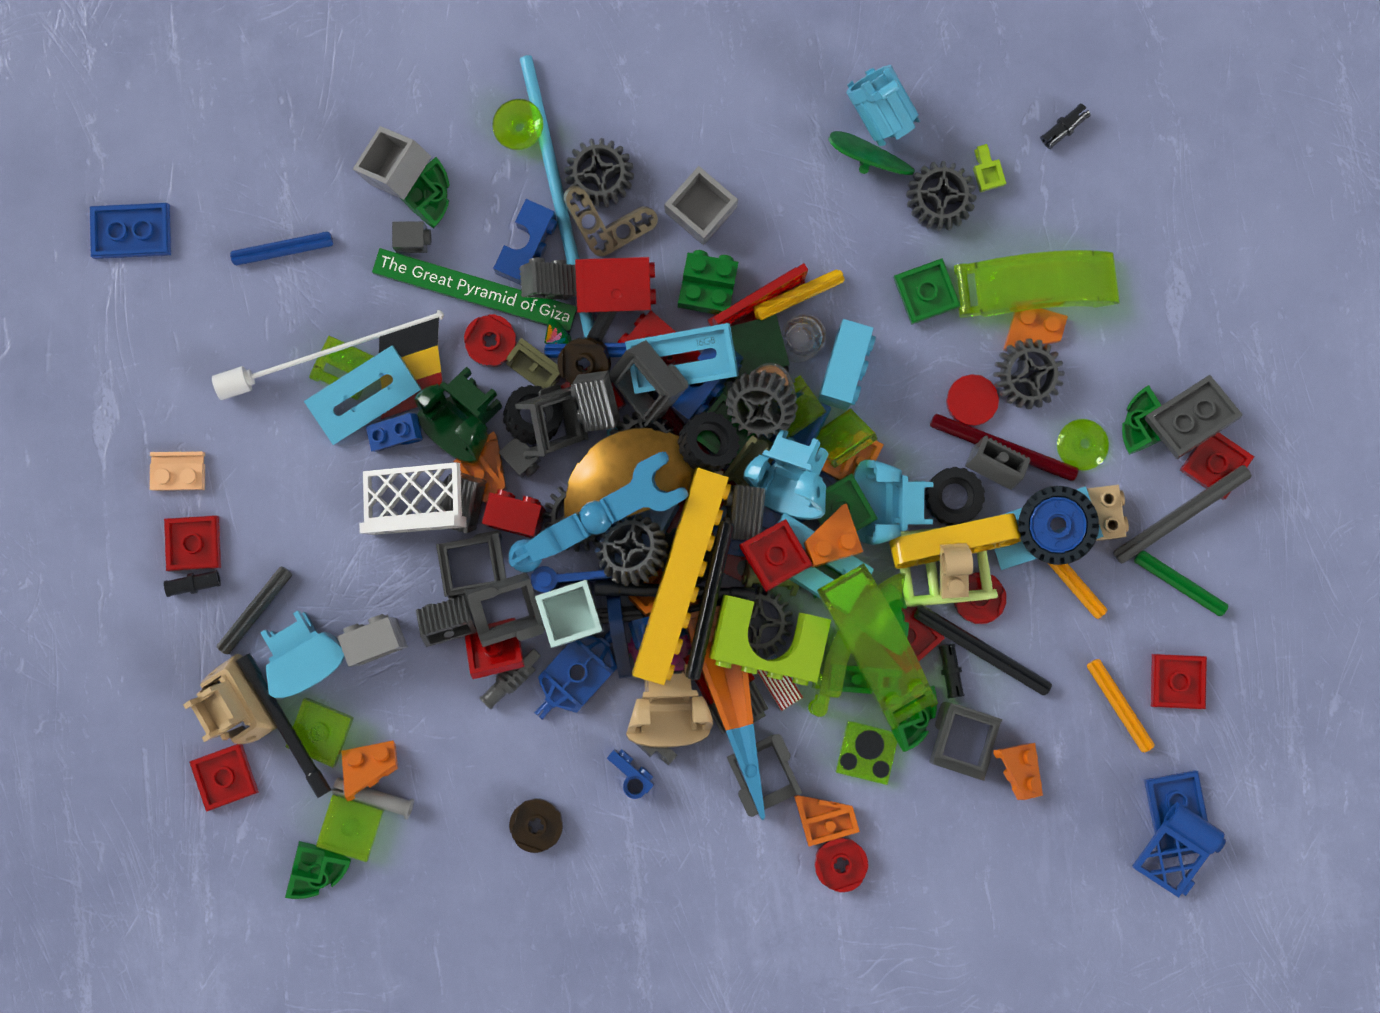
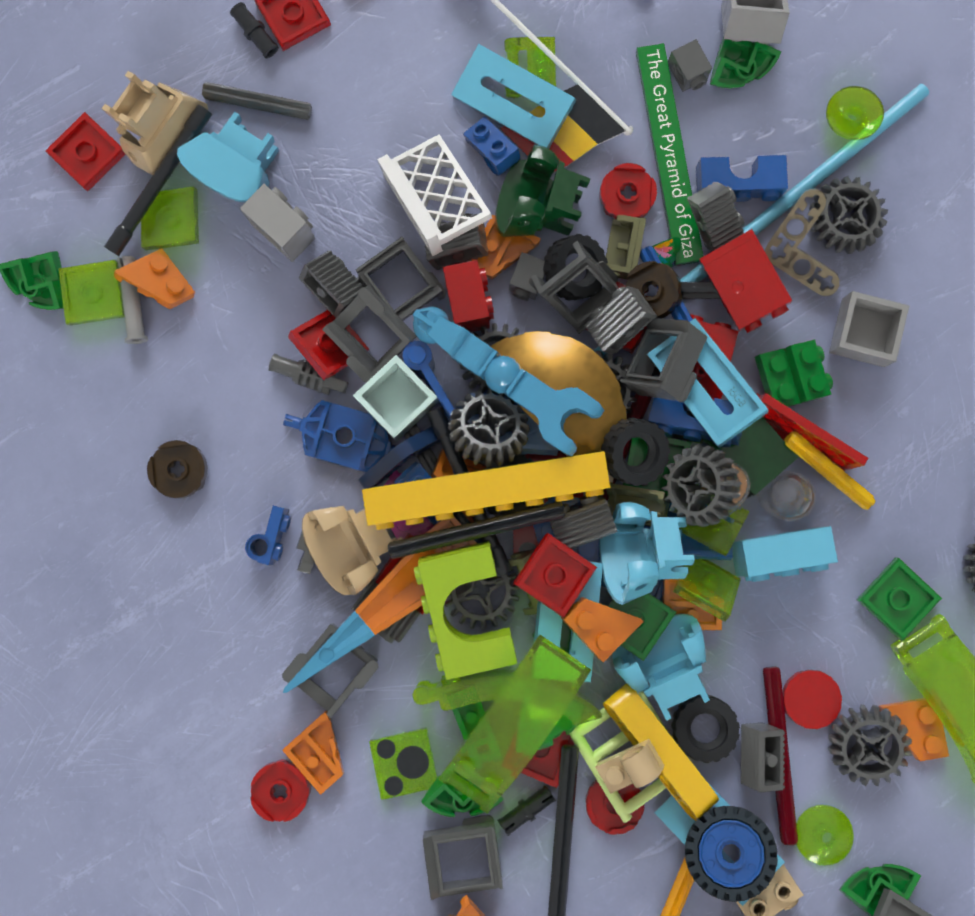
camera: 70 degrees right, 0 degrees up
(782, 691) = (422, 650): tile -> none

